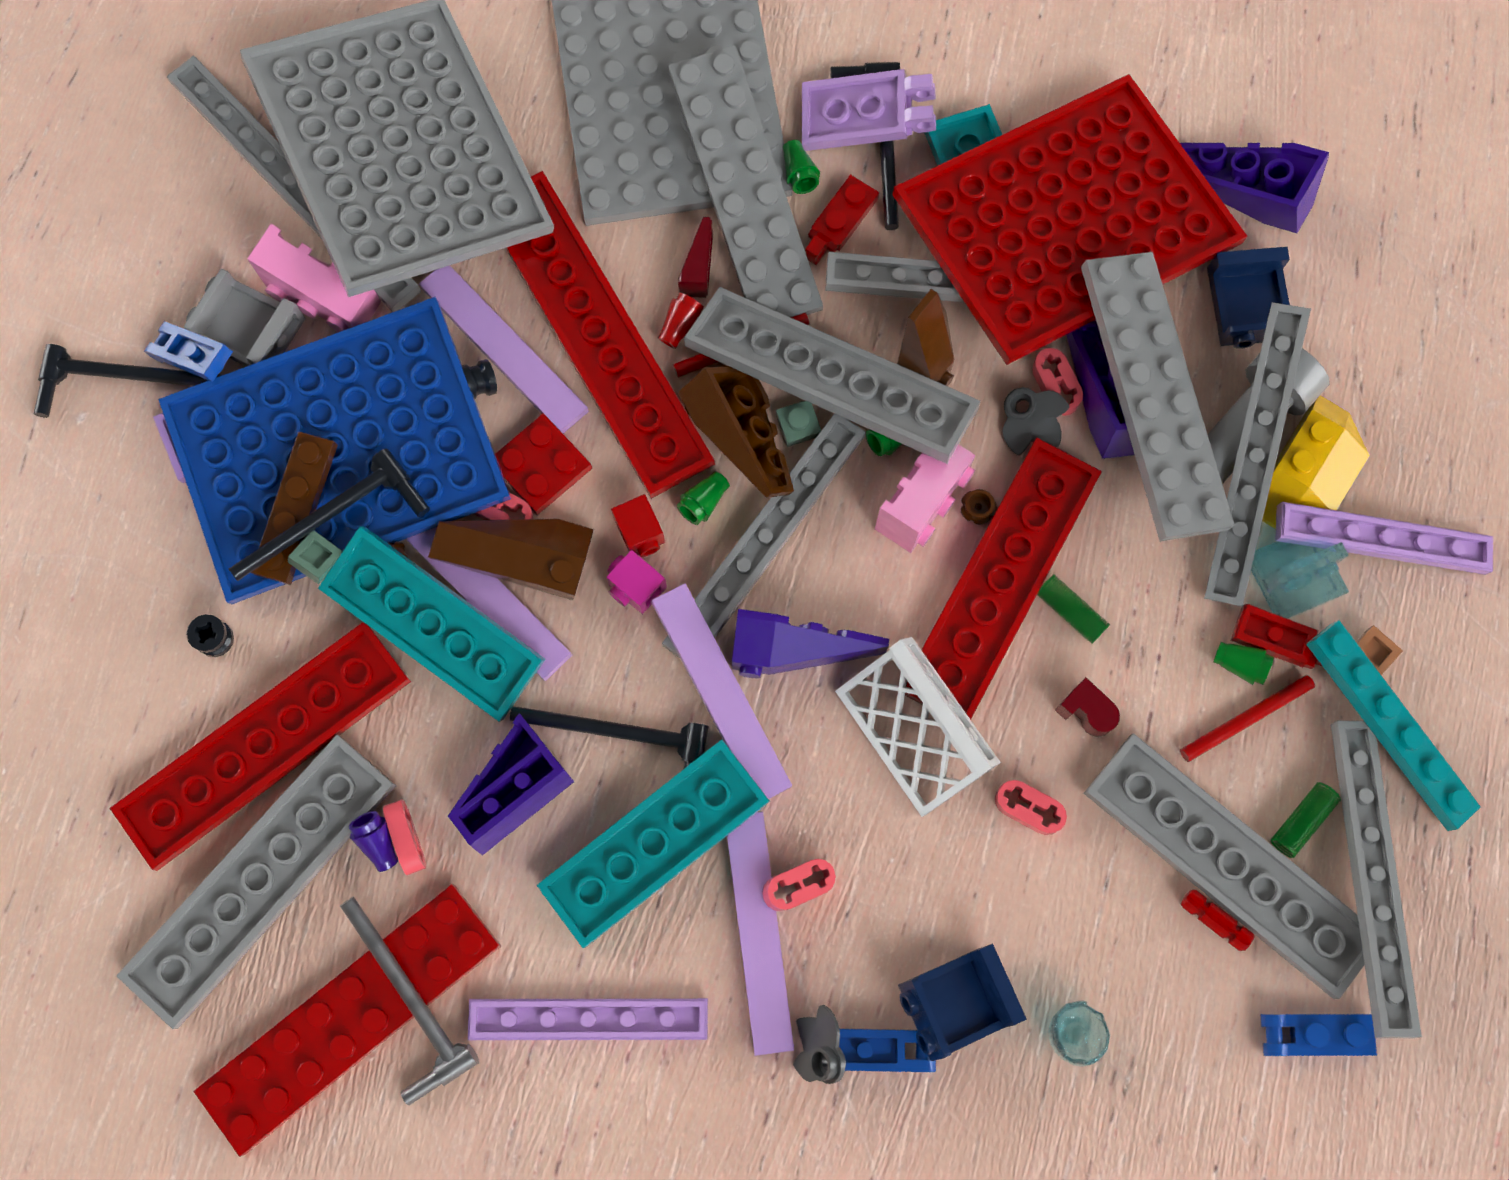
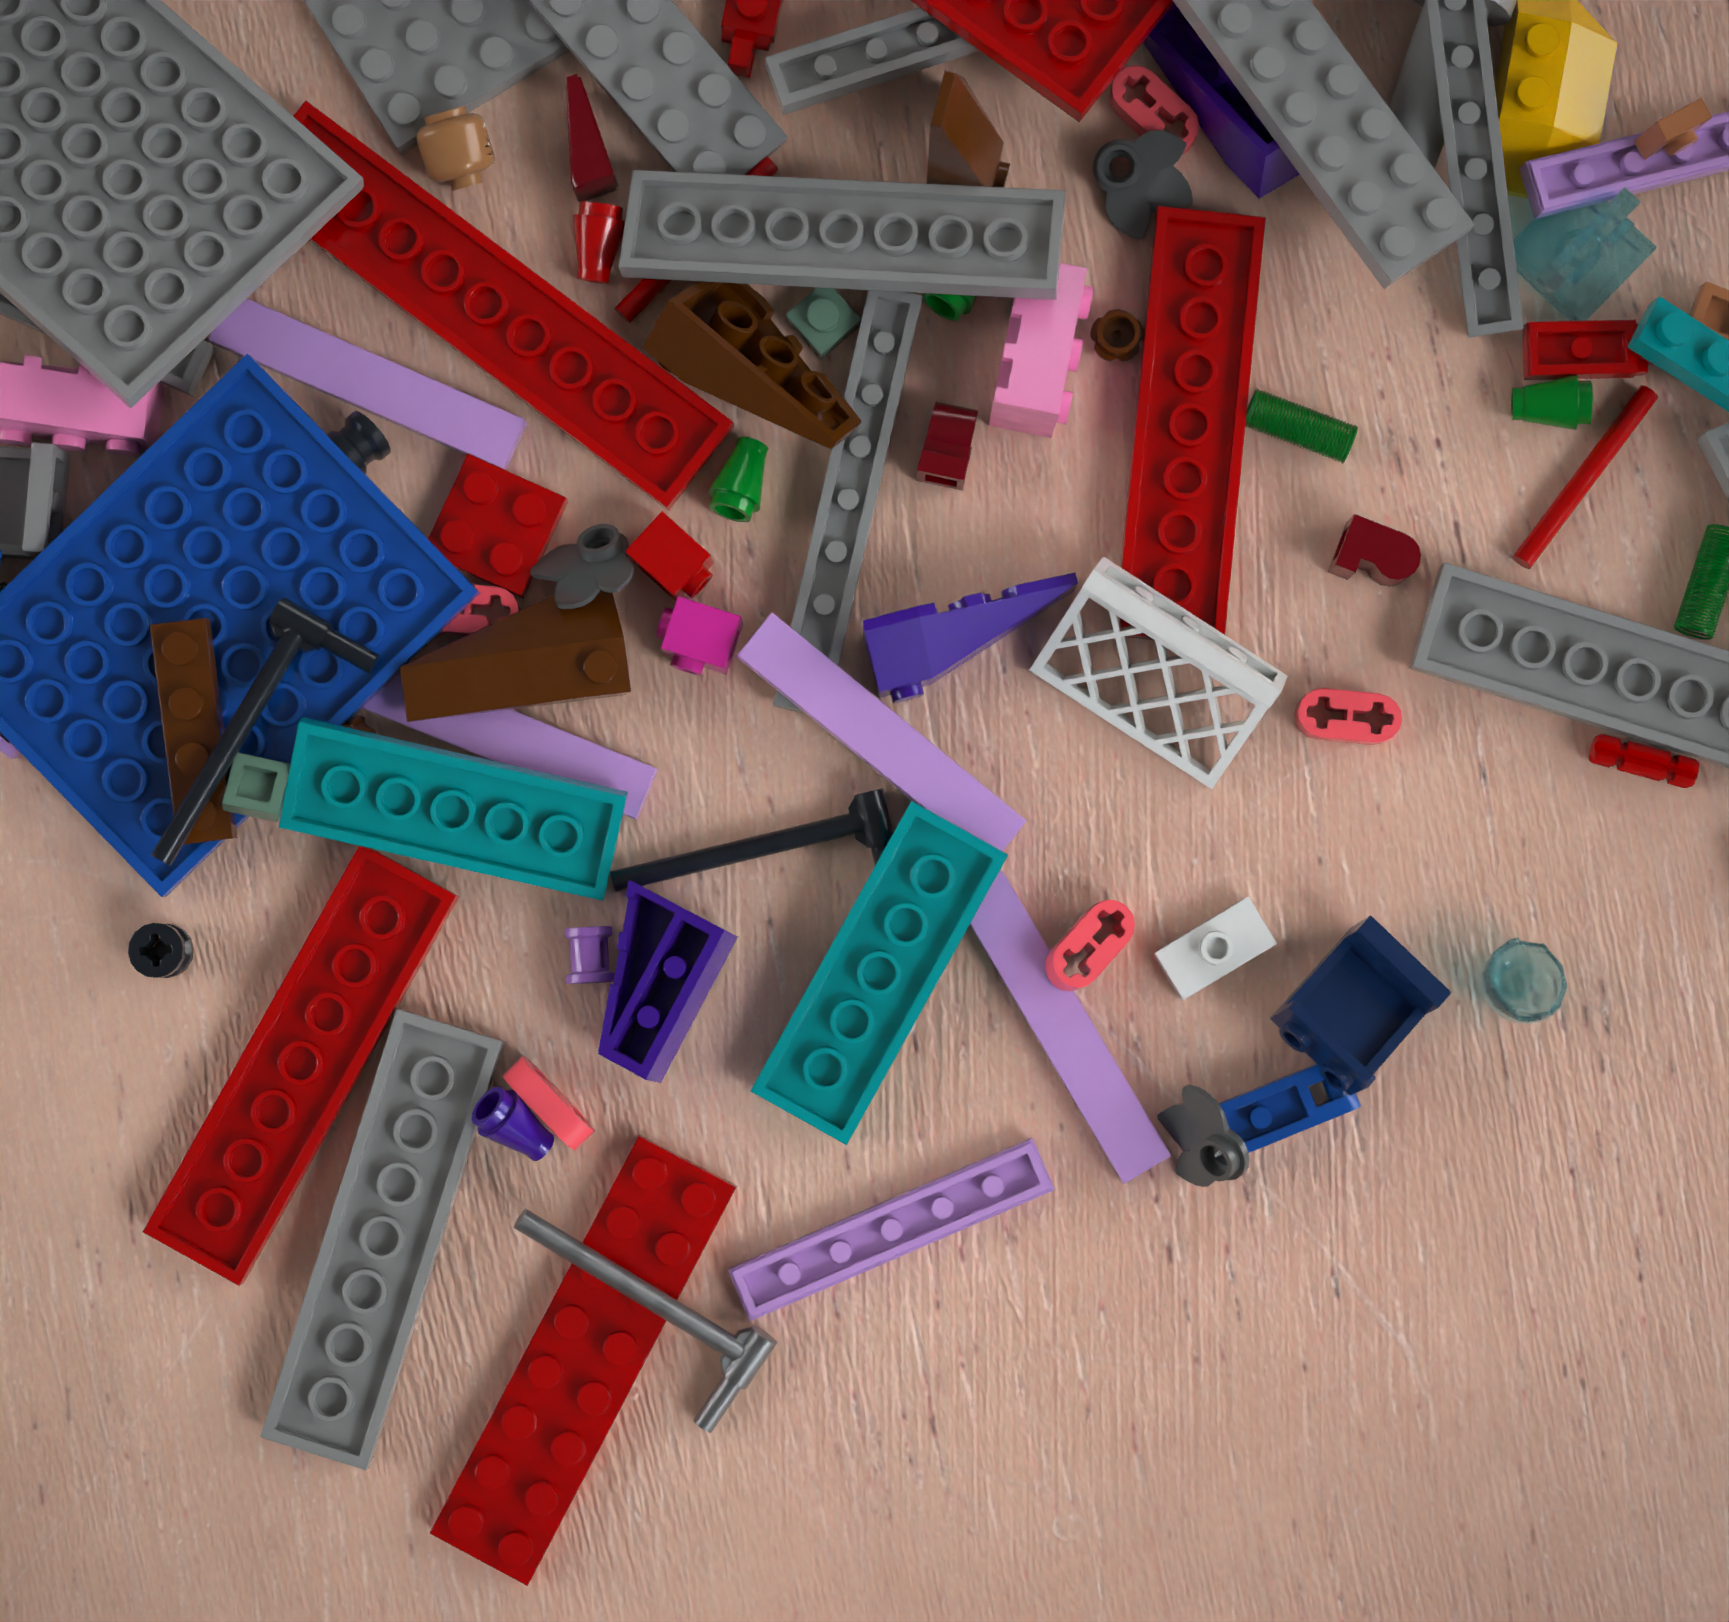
camera: 20 degrees left, 10 degrees up
(474, 752) = (589, 955): none -> medium lavender bush
(583, 510) = (587, 567): none -> dark grey plate
(618, 232) = (455, 147): none -> medium nougat head
(842, 530) = (947, 446): none -> dark red leg
(881, 923) = (1215, 948): none -> white plate
(1386, 520) = (1674, 131): none -> nougat plate

